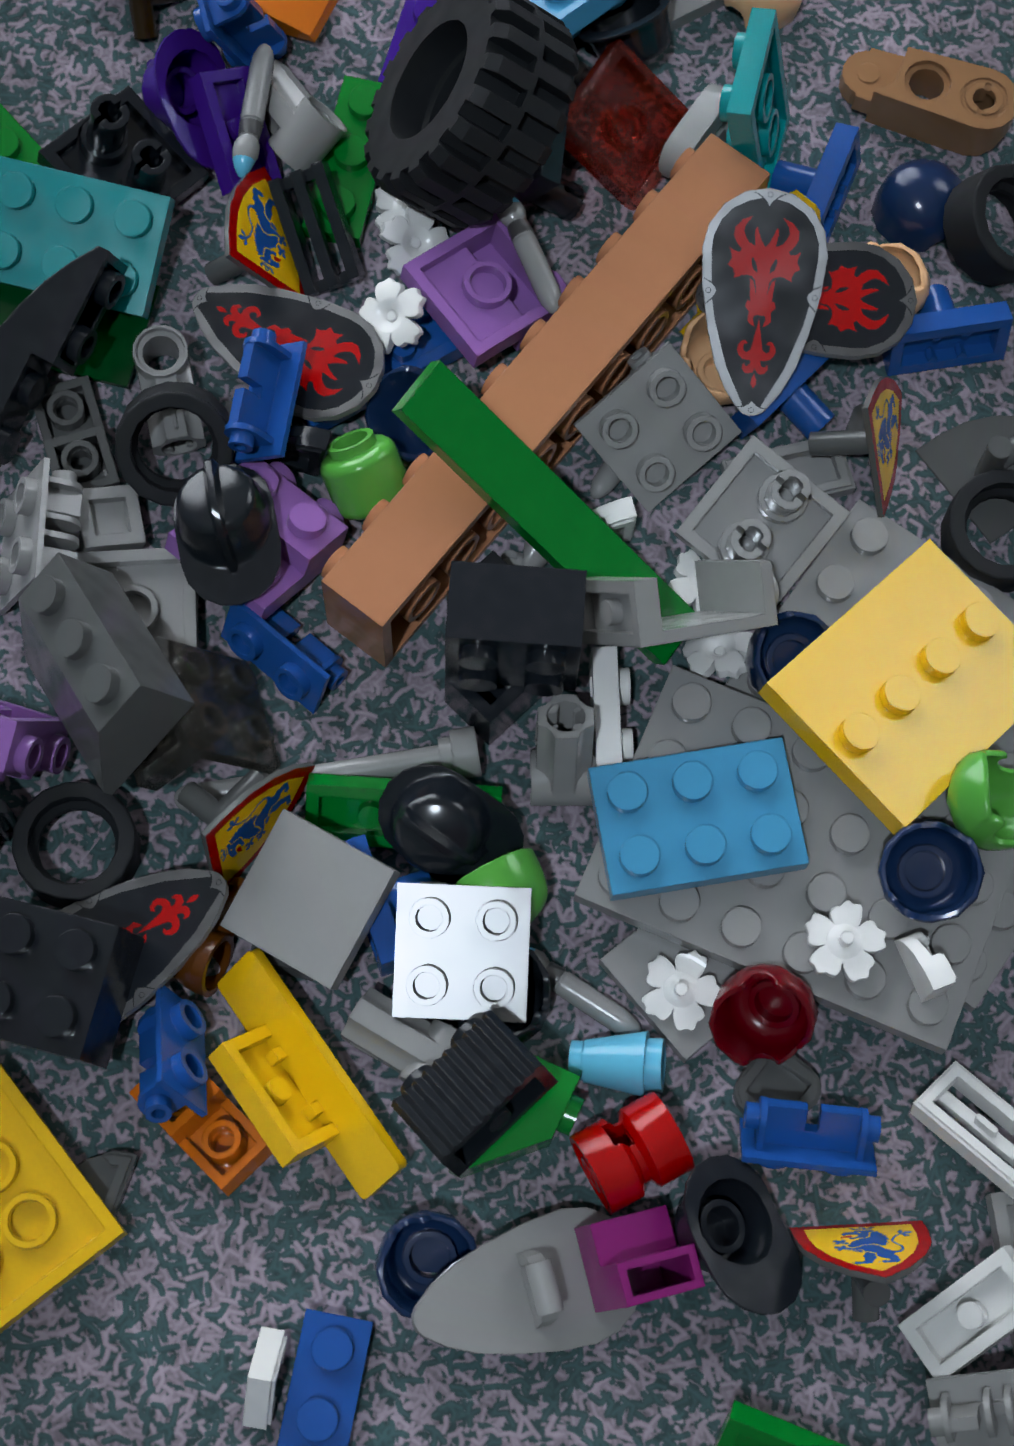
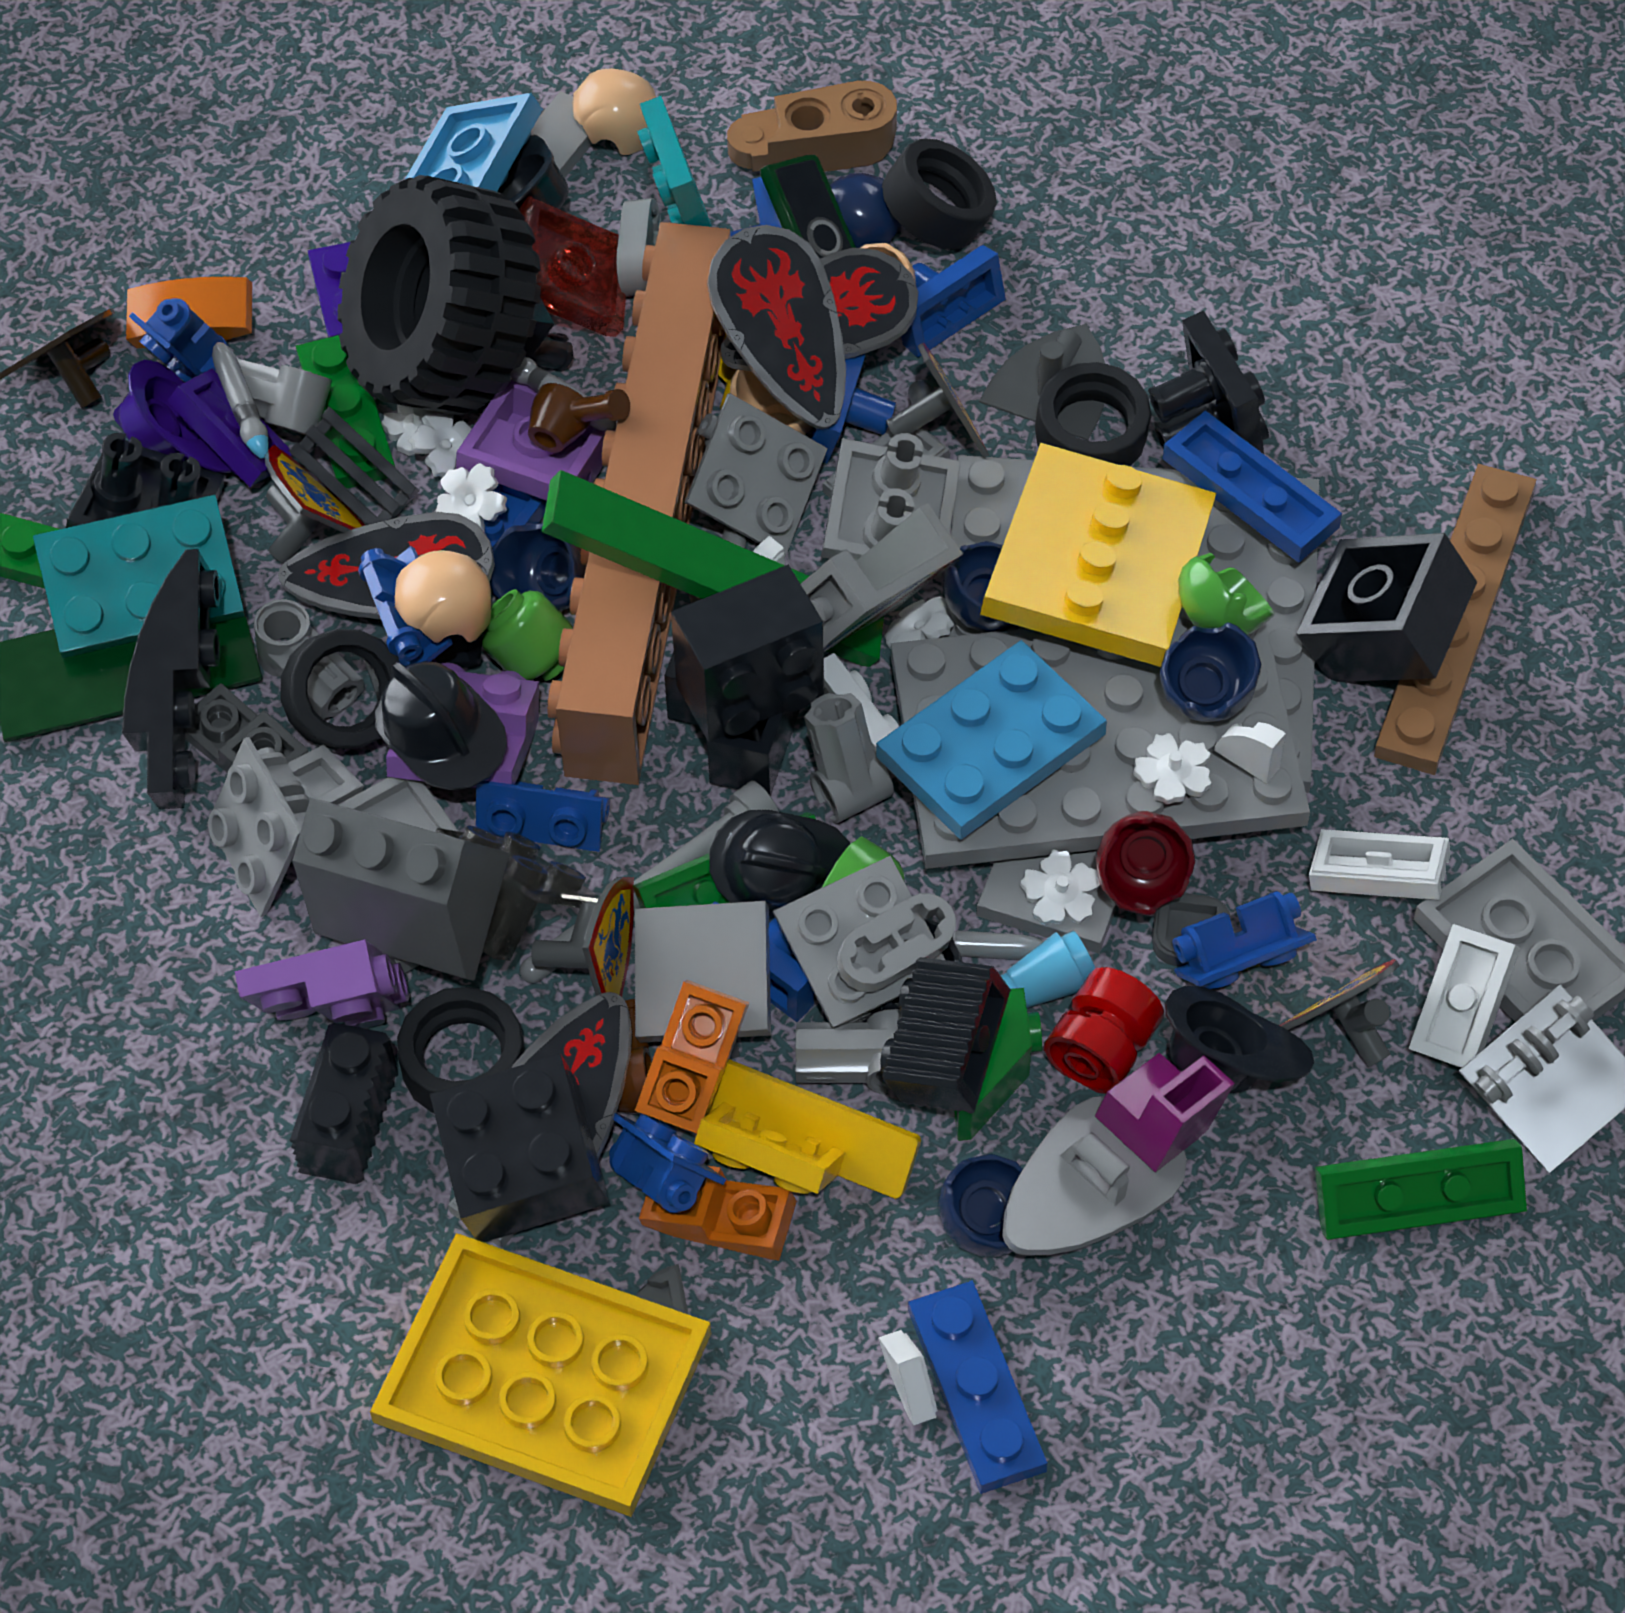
camera: 25 degrees left, 15 degrees down
(250, 977) = (692, 1056): none -> orange slope
(297, 410) = (444, 596): none -> light nougat hair
(483, 995) = (888, 929): none -> light grey beam
(510, 283) = (563, 415): none -> reddish brown bar
(865, 183) = (807, 203): none -> slope

